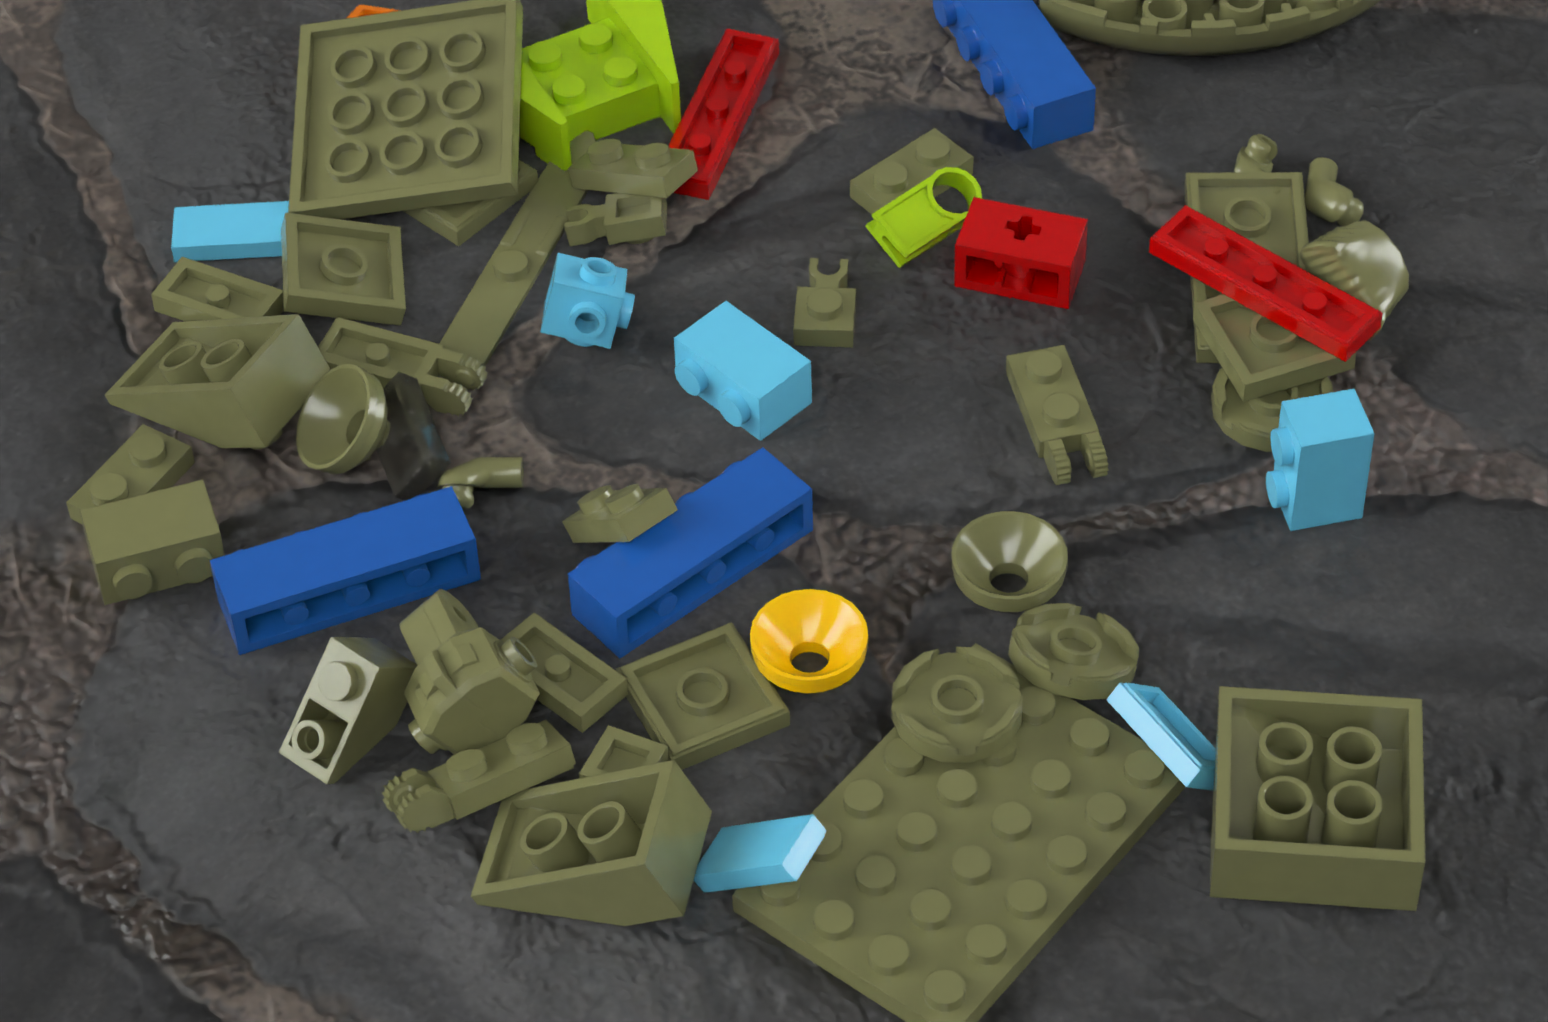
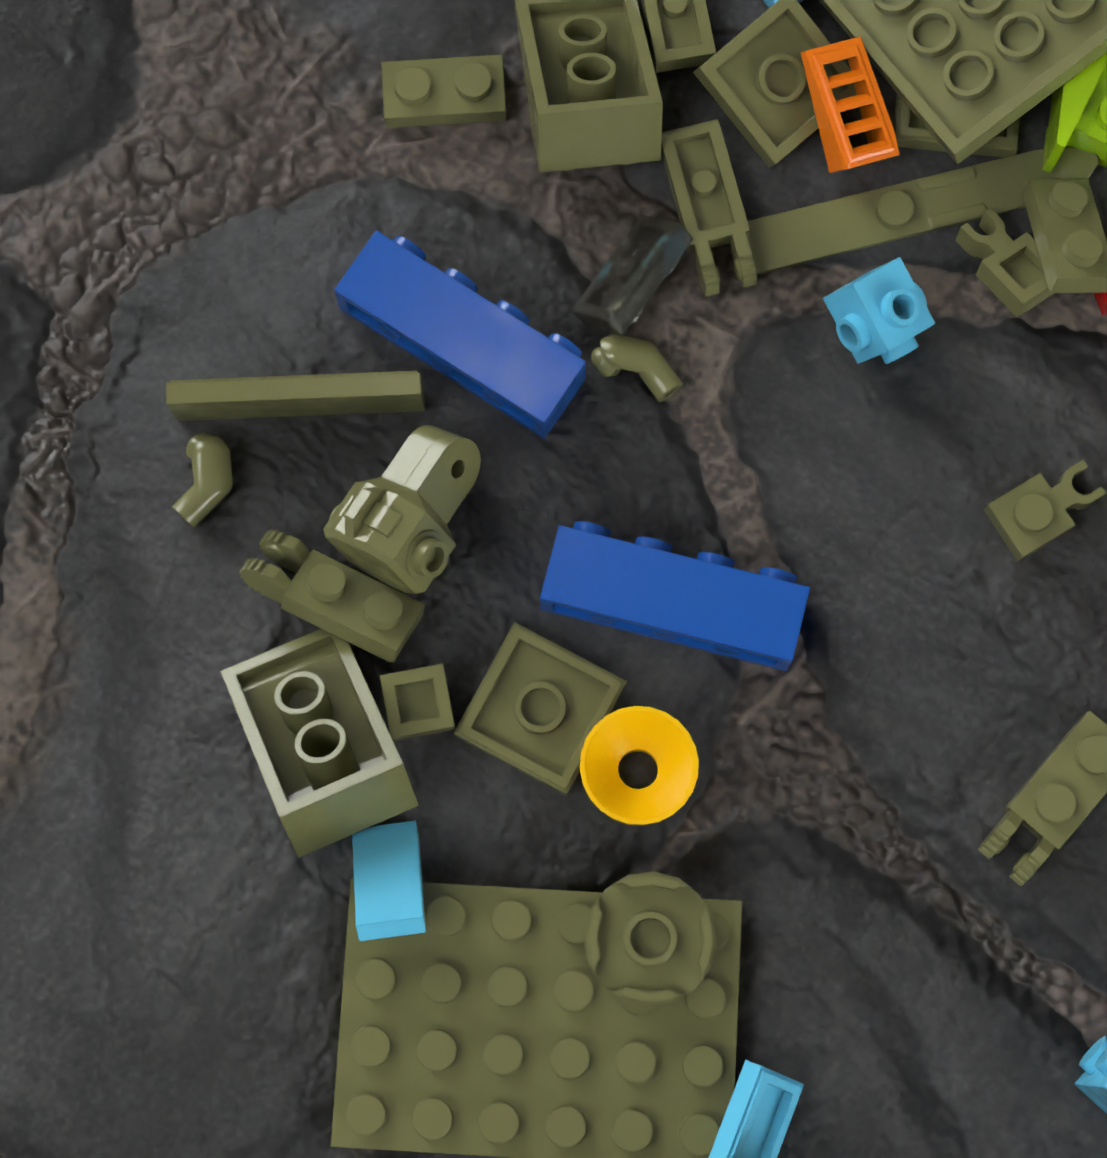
camera: 55 degrees right, 30 degrees up
(152, 541) = (383, 163): olive brick -> none
(259, 734) = (295, 395): none -> olive tile
(302, 812) = (211, 477): none -> olive arm
(342, 420) = (604, 215): olive piece -> none
(347, 706) = (328, 442): olive slope -> none
(417, 239) = (875, 118): none -> orange slope
(568, 675) = (477, 579): olive plate -> none
(618, 514) = (657, 518): olive plate -> none
(742, 370) = (903, 496): medium azure brick -> none
(1012, 545) = (877, 871): olive piece -> none
(1072, 651) = (786, 992): olive tile -> none

